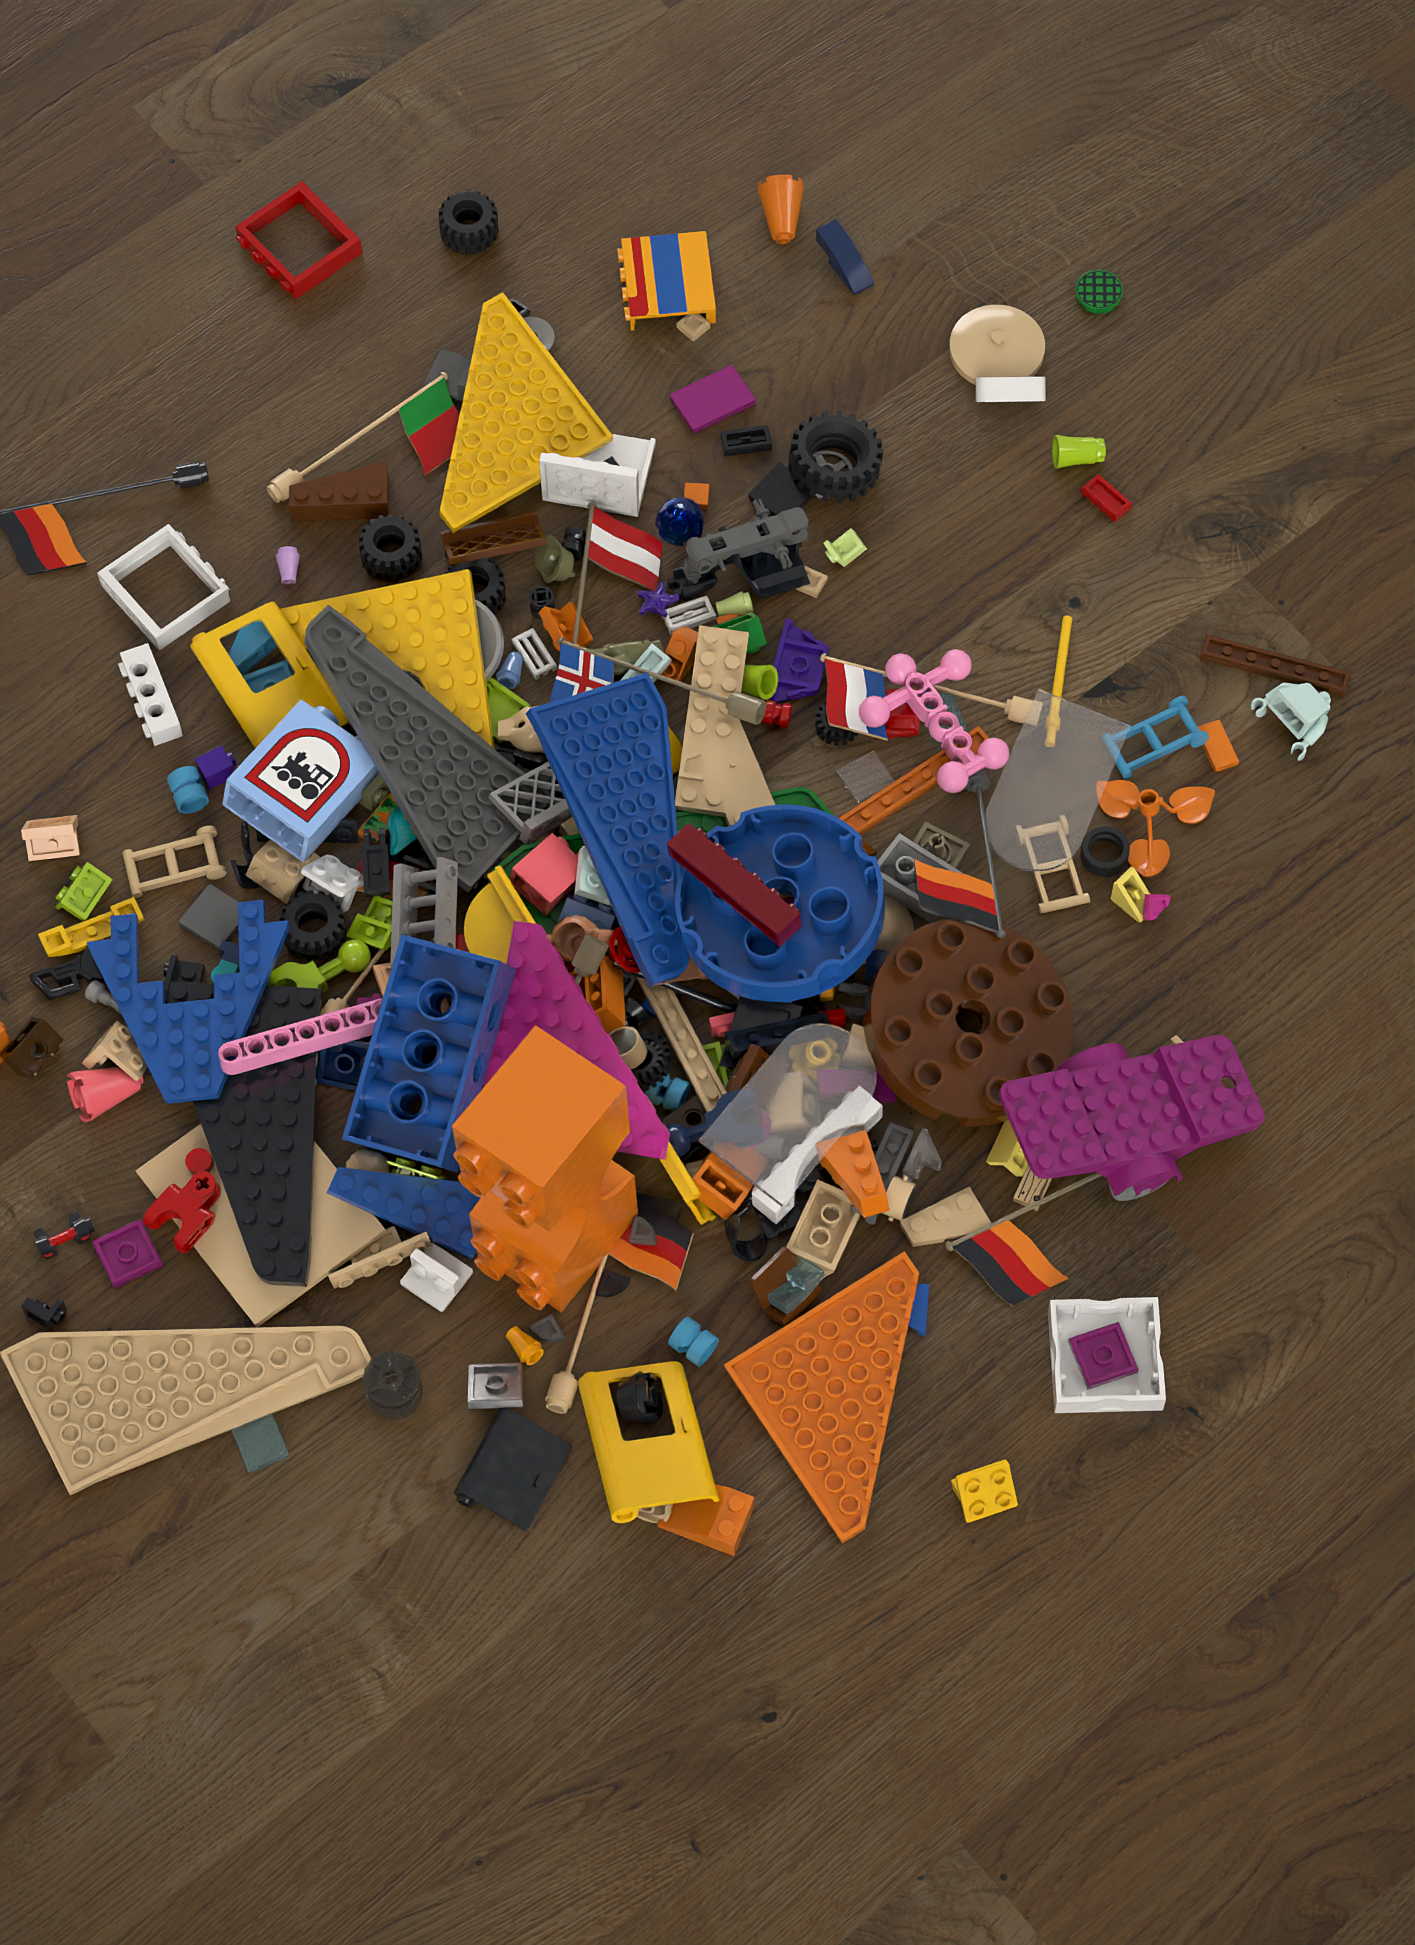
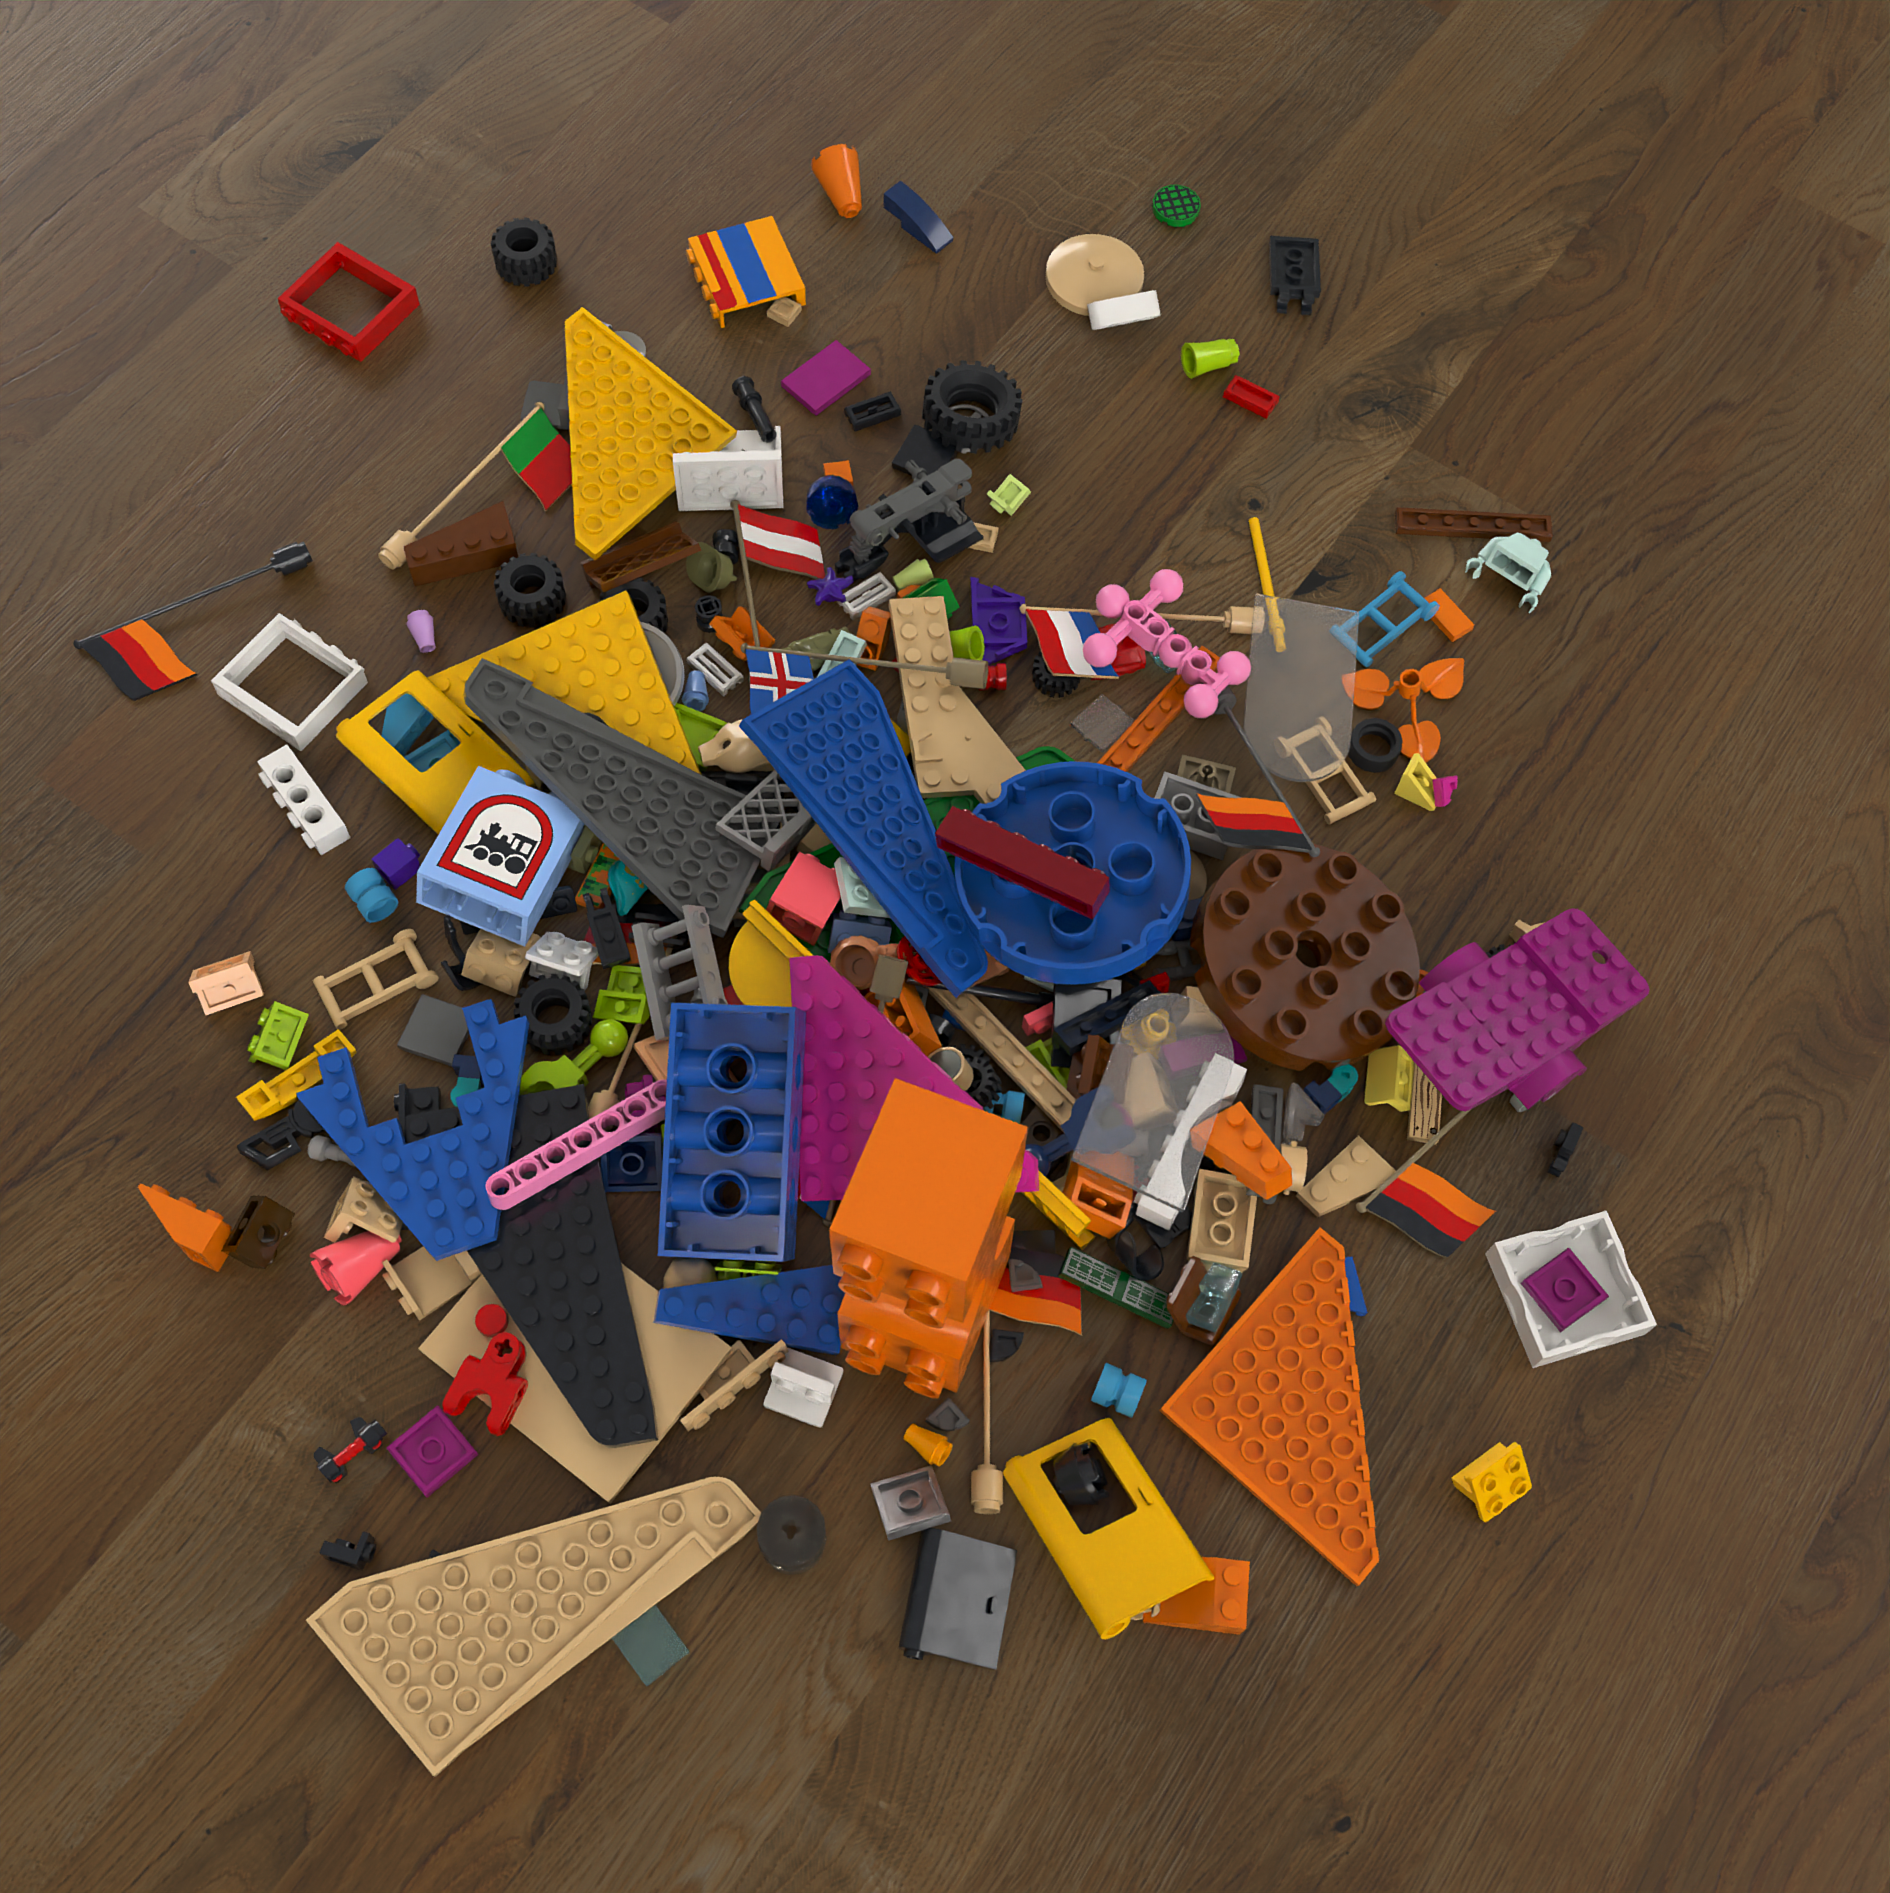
camera: 20 degrees left, 0 degrees up
(158, 1121) = (429, 1282): none -> tan panel
(635, 409) = (751, 402): none -> black pin
(715, 1257) = (1116, 1286): none -> dark green tile
(959, 1143) = (1333, 1089): none -> leg
(1149, 1236) = (1566, 1143): none -> black plate
(1190, 380) = (1294, 271): none -> black tile

